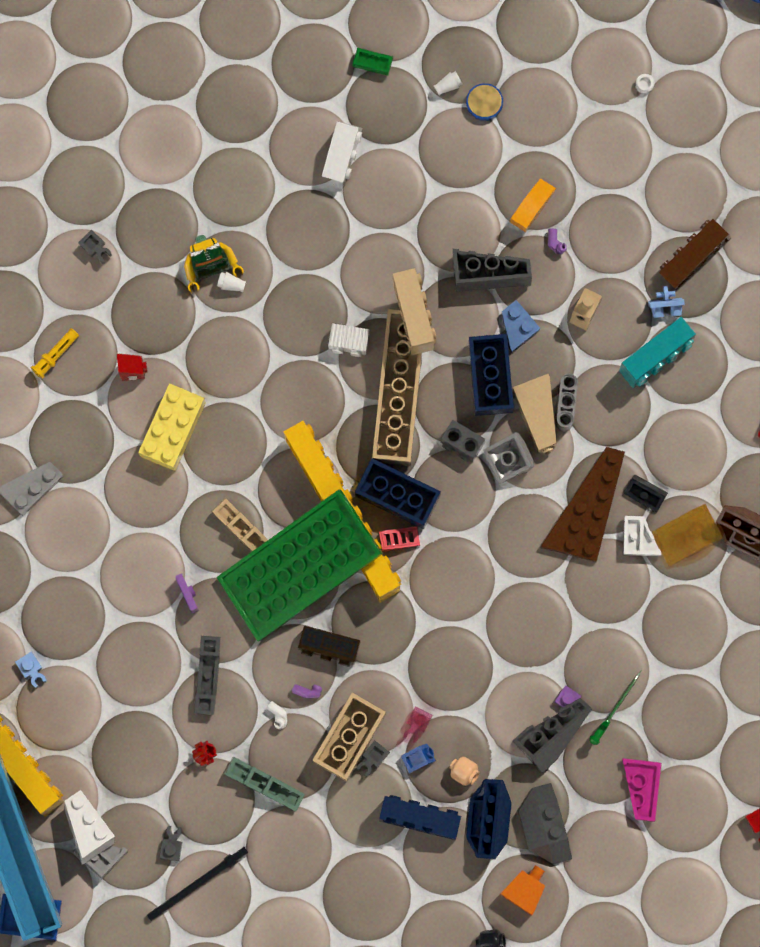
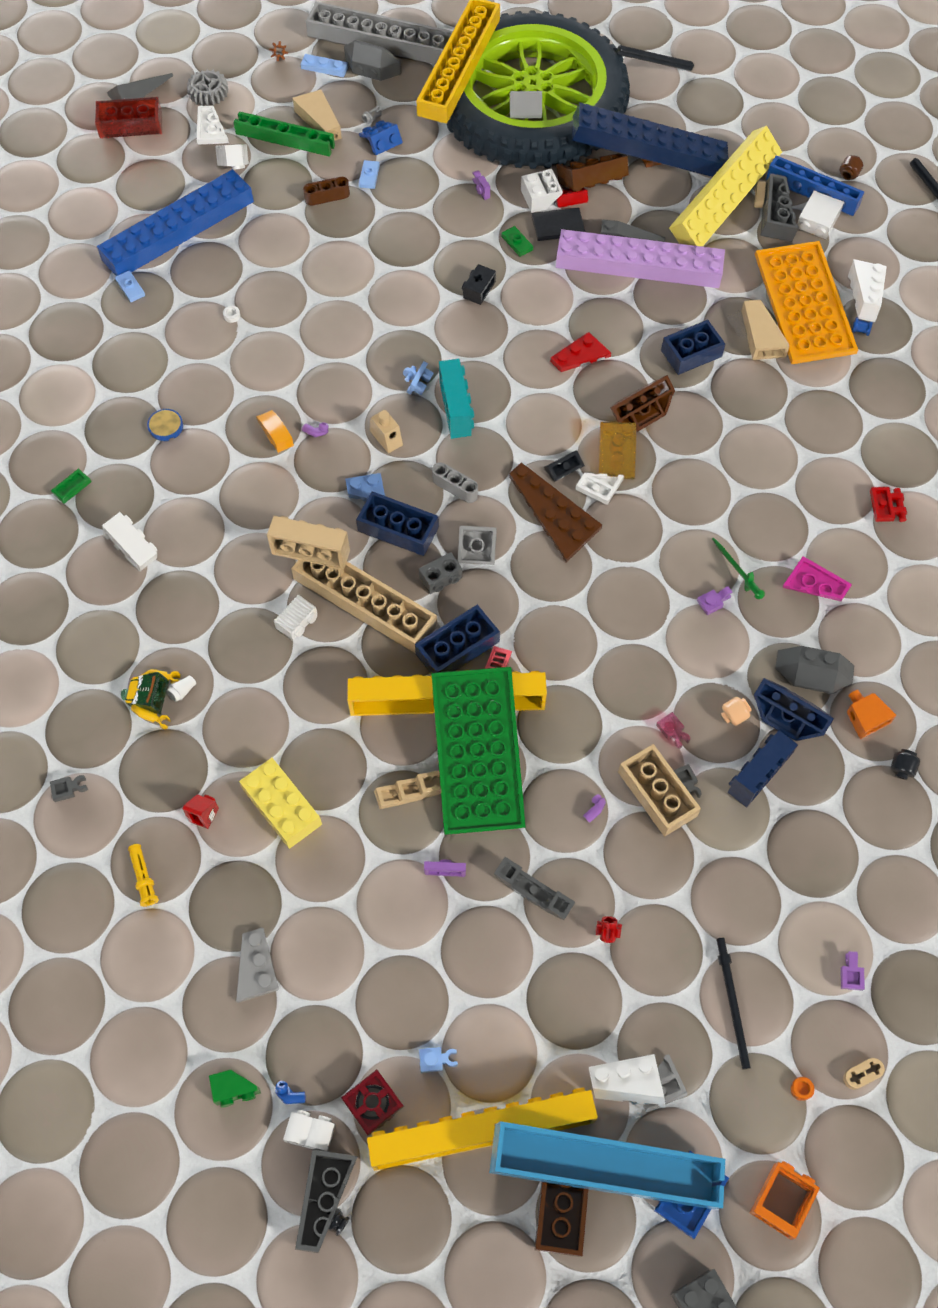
camera: 65 degrees left, 15 degrees down
(171, 847) = (685, 1010): dark grey plate -> none
(264, 784) = (664, 890): sand green slope -> none
(280, 715) = (604, 843): white arm -> none
(329, 646) = (563, 768): brick -> none
(418, 758) = (705, 743): blue bracket -> none
(448, 83) = (131, 439): white cone -> none
(489, 271) = (308, 485): dark grey wedge -> none
(536, 407) = (453, 506): tan slope -> none
(549, 739) = (739, 630): dark grey wedge -> none
(694, 253) = (390, 338): reddish brown wedge -> none

